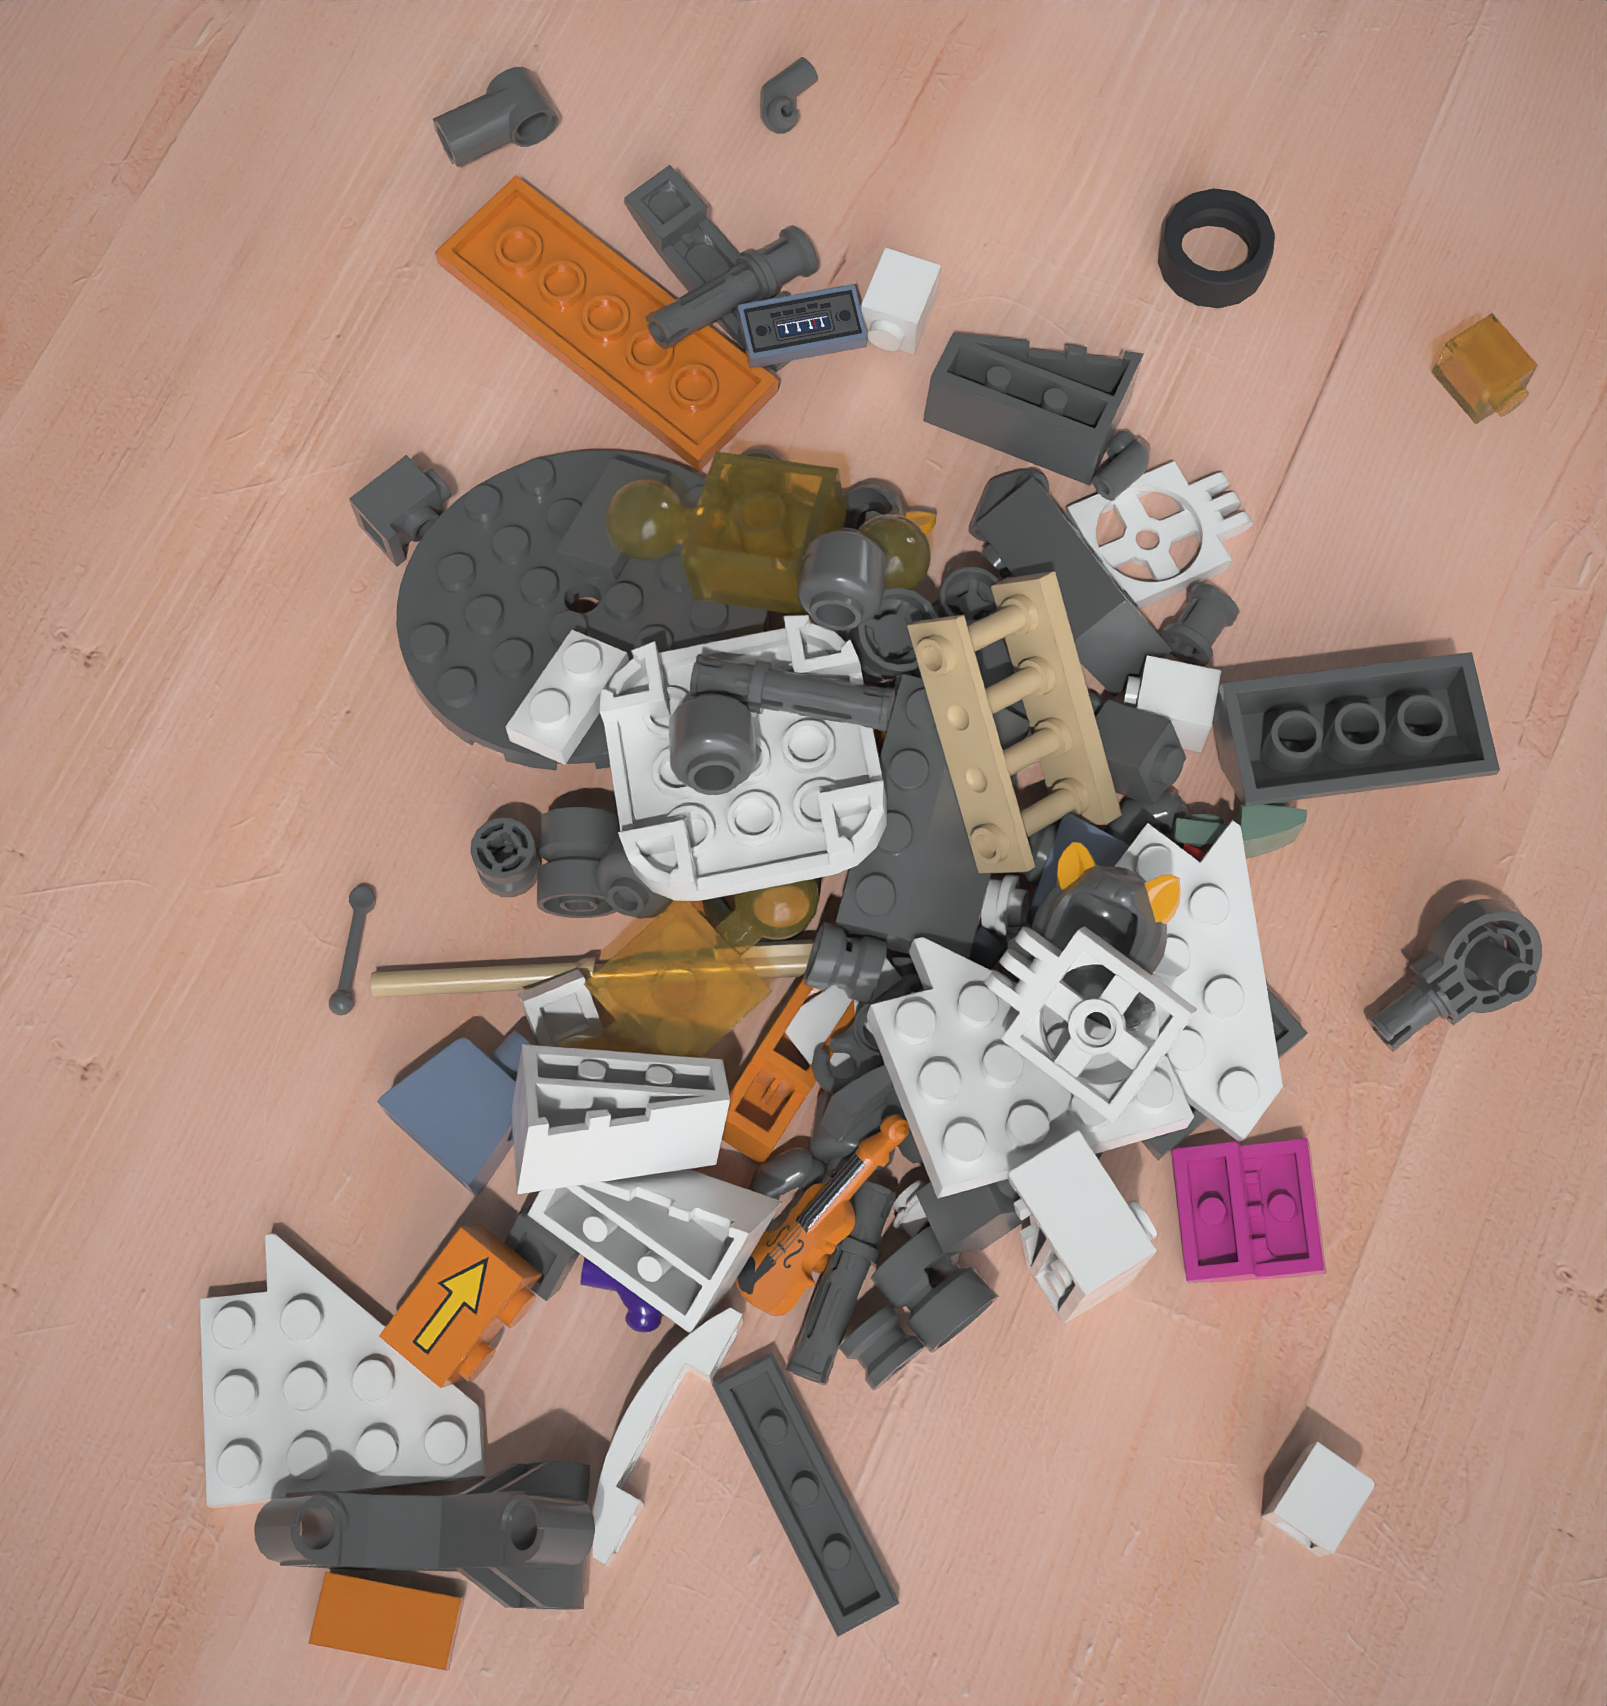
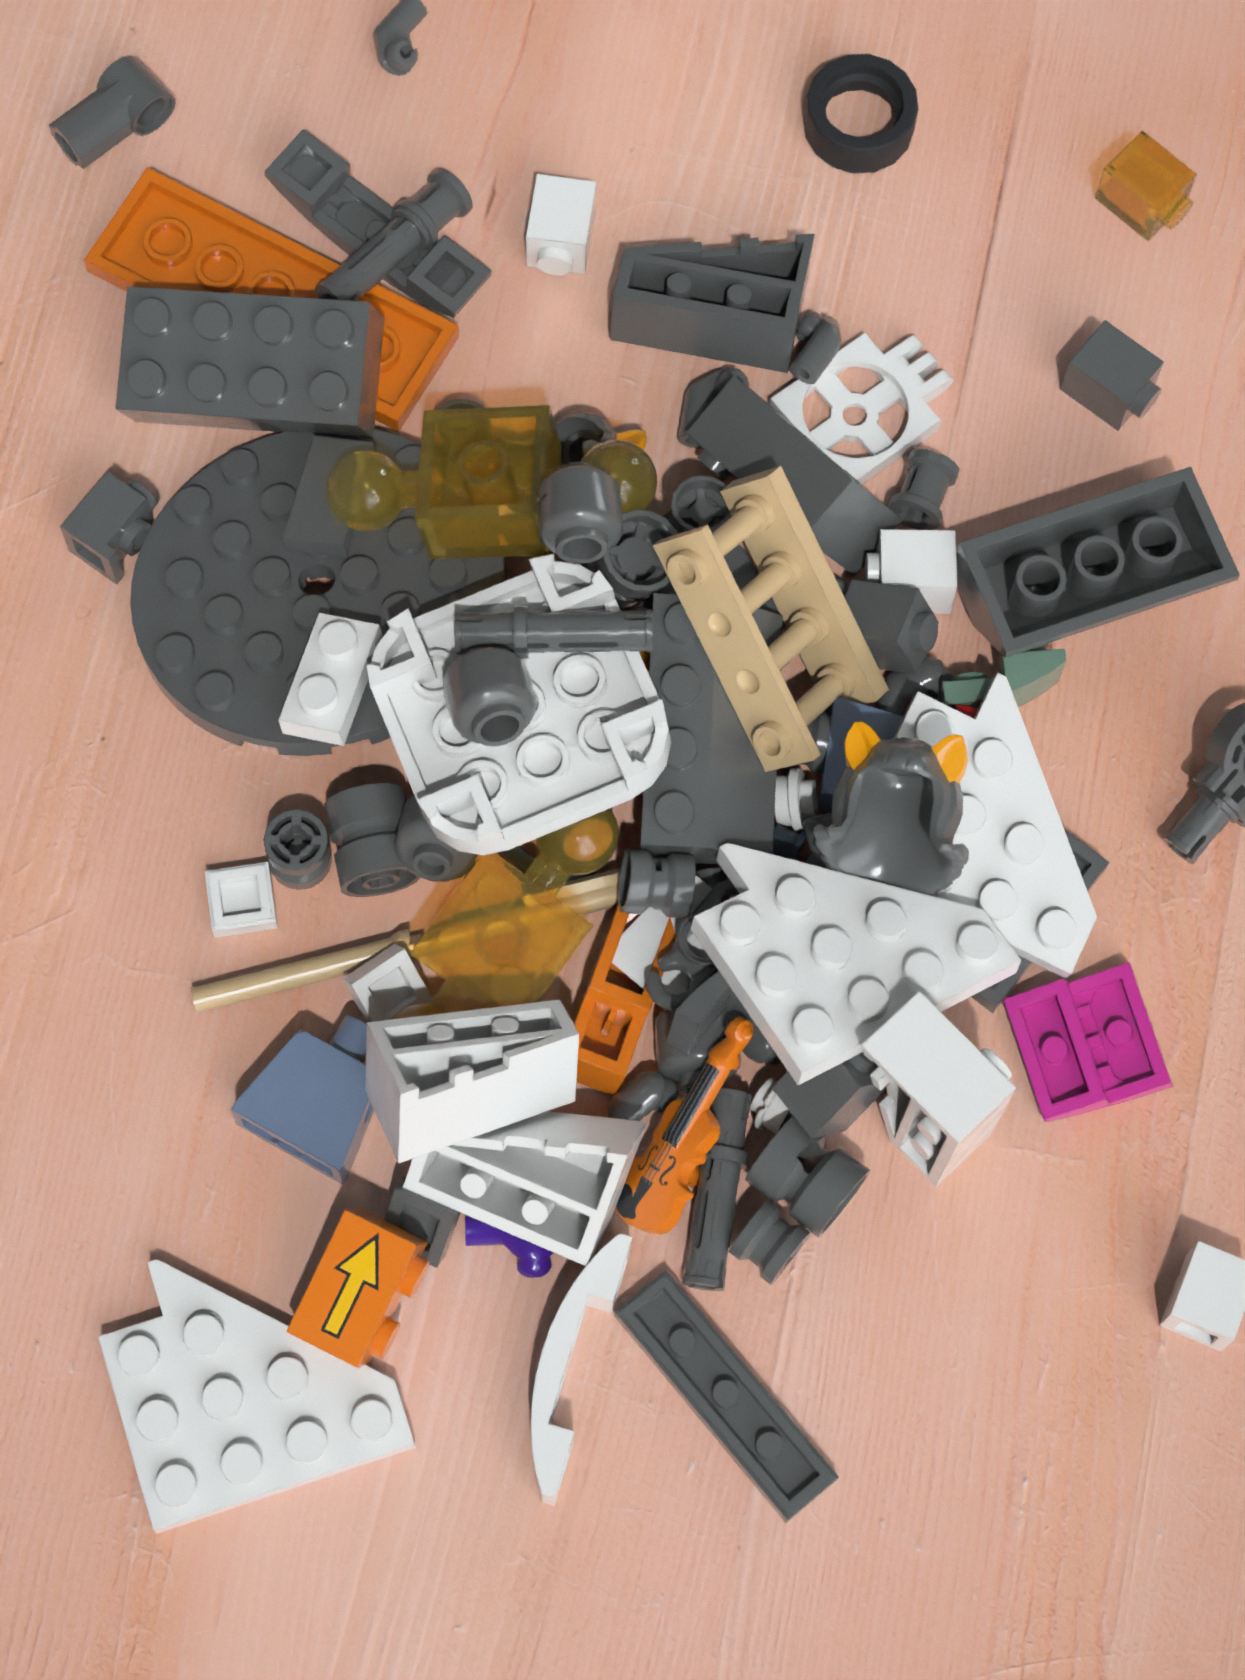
camera: 15 degrees left, 0 degrees up
(362, 902) = (163, 922): dark grey hinge -> none
(386, 1621) = (353, 1601): orange tile -> none
(441, 895) = (241, 899): none -> white tile
(510, 1535) = (459, 1489): dark grey connector -> none
(567, 375) = (250, 361): none -> dark grey brick
(802, 326) = (471, 267): tile -> none
(1043, 985) = (855, 863): white piece -> none
(1413, 549) = (1113, 376): none -> dark grey brick

